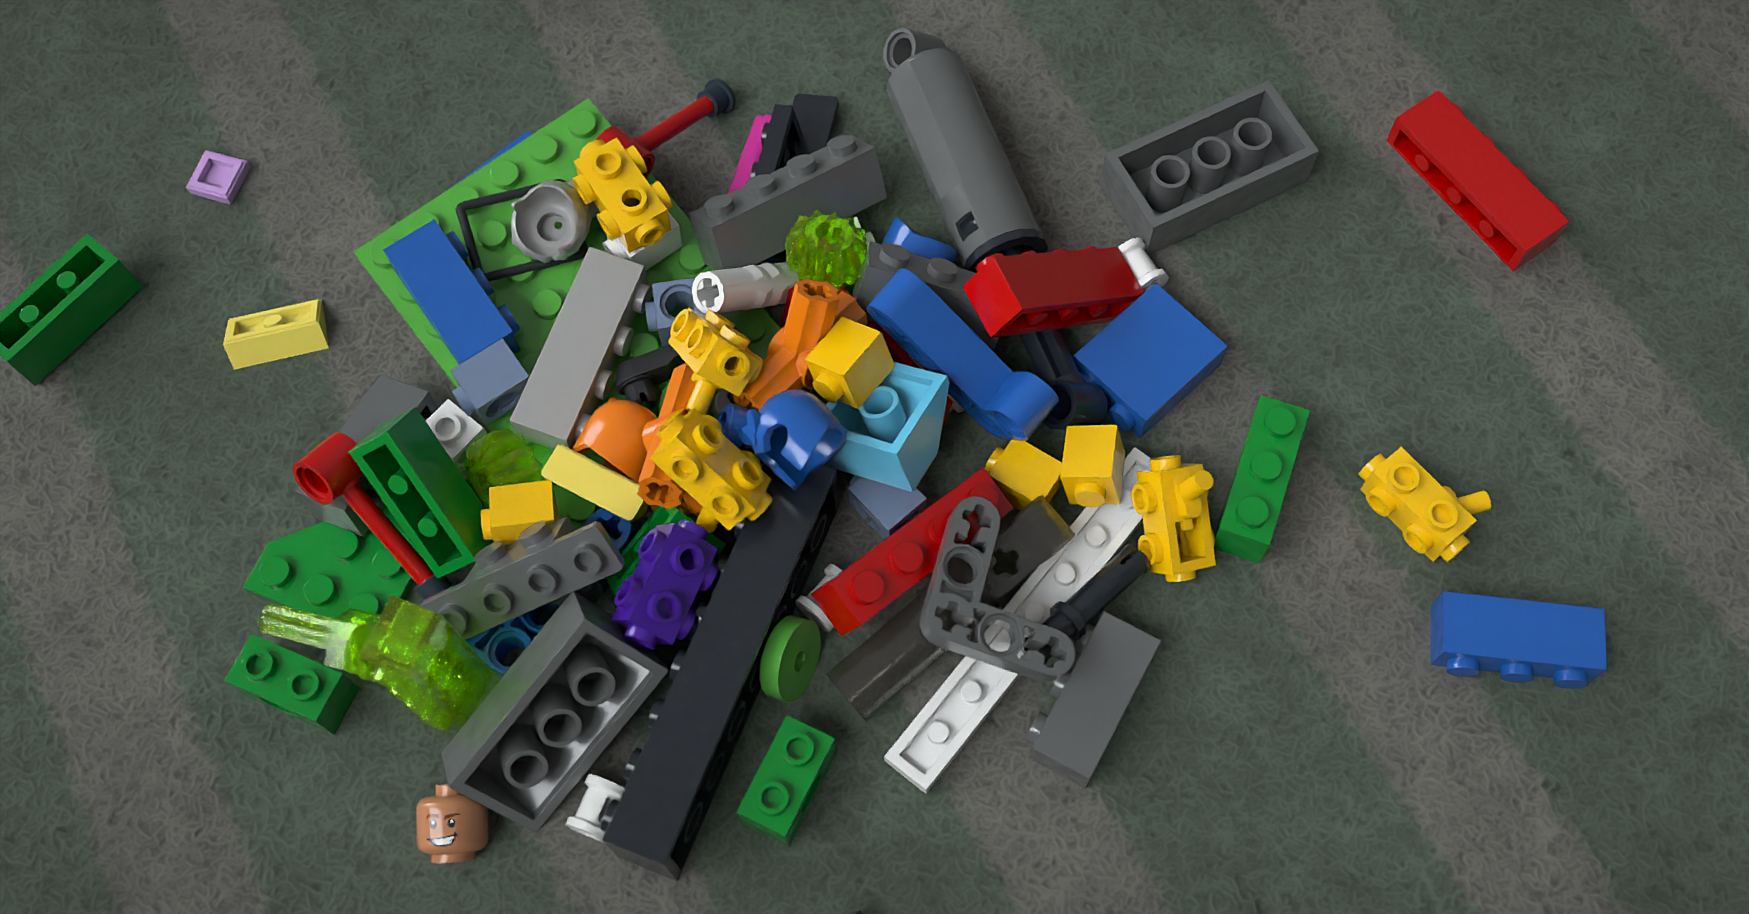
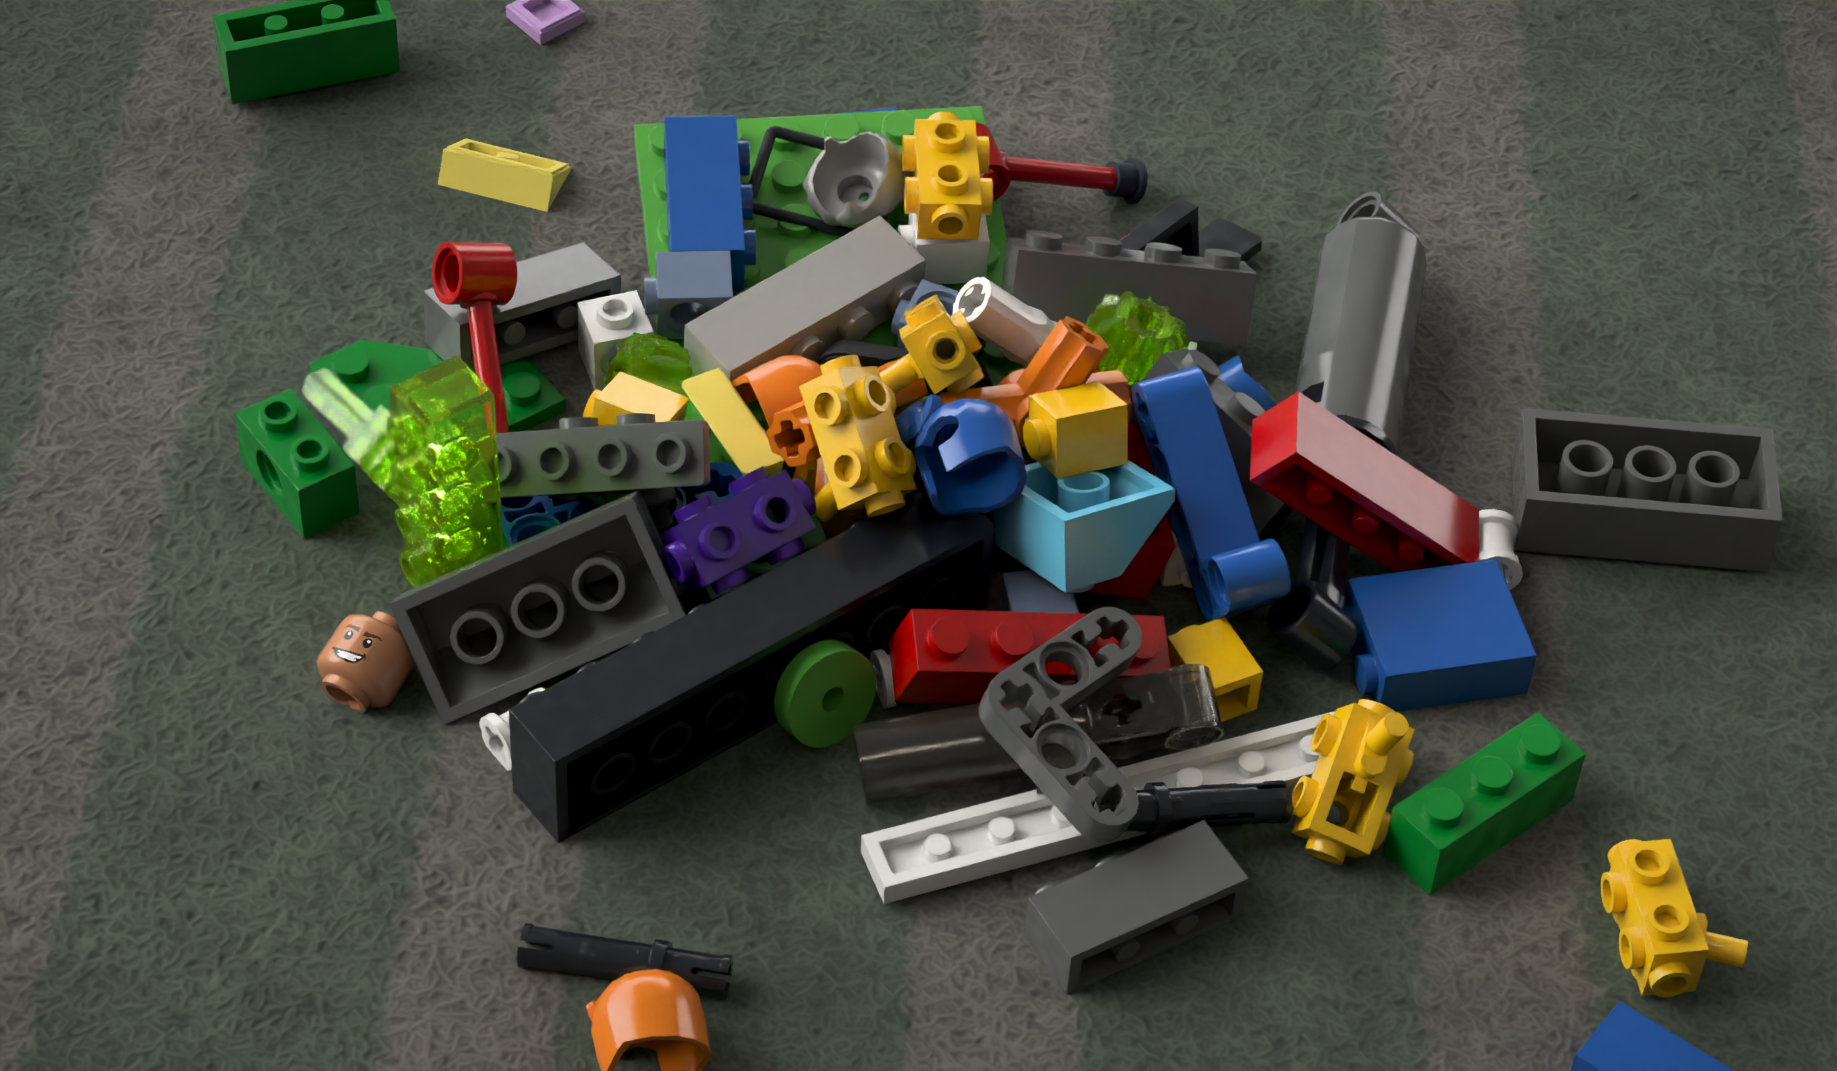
camera: 25 degrees right, 20 degrees down
(423, 491) = (550, 337): green brick -> none
(787, 781) = (740, 801): green brick -> none
(1093, 465) = (1293, 685): yellow brick -> none

